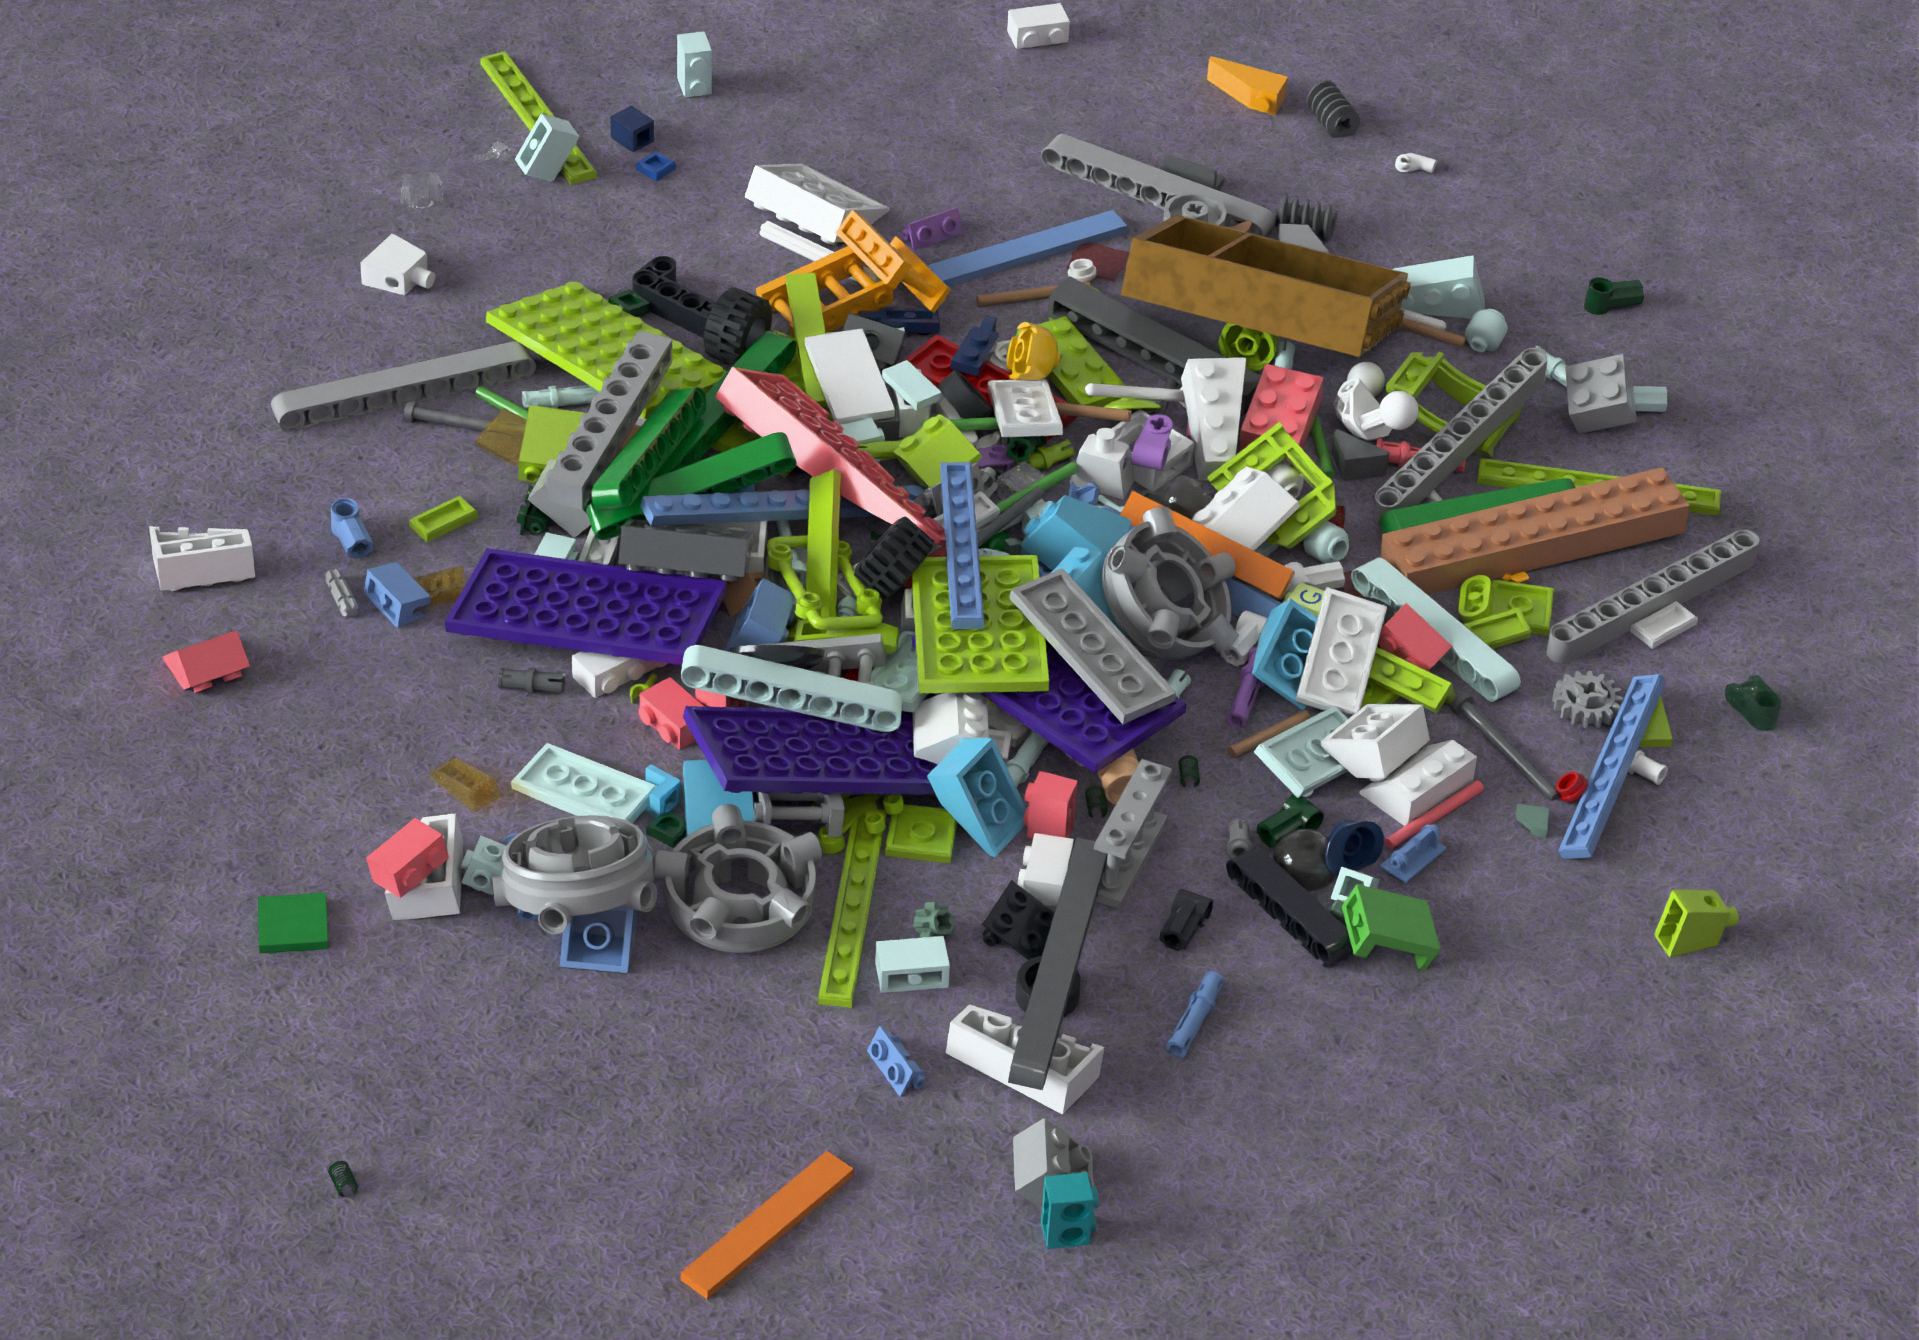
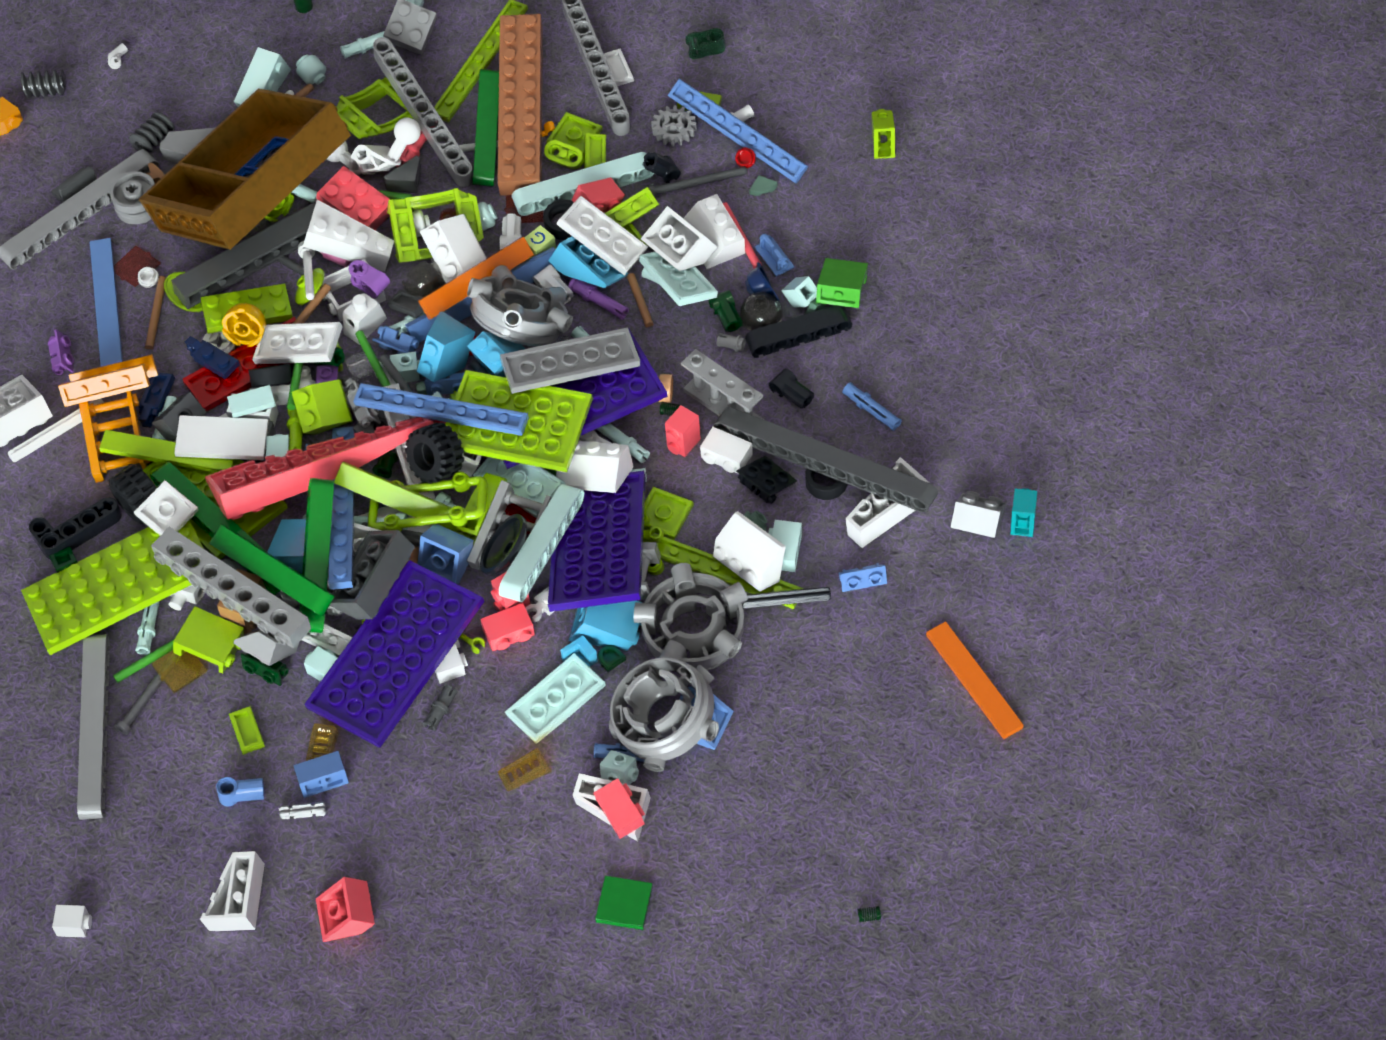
camera: 65 degrees left, 15 degrees up
(128, 432) = (71, 921): none -> white brick
(712, 348) = (165, 509): none -> white tile
(823, 980) = (787, 597): none -> axle
(869, 917) = (750, 552): none -> white slope
(980, 793) = (656, 466): medium azure slope -> none
(1195, 772) = (654, 348): dark green piece -> none
(1505, 703) = (661, 166): none -> black piece

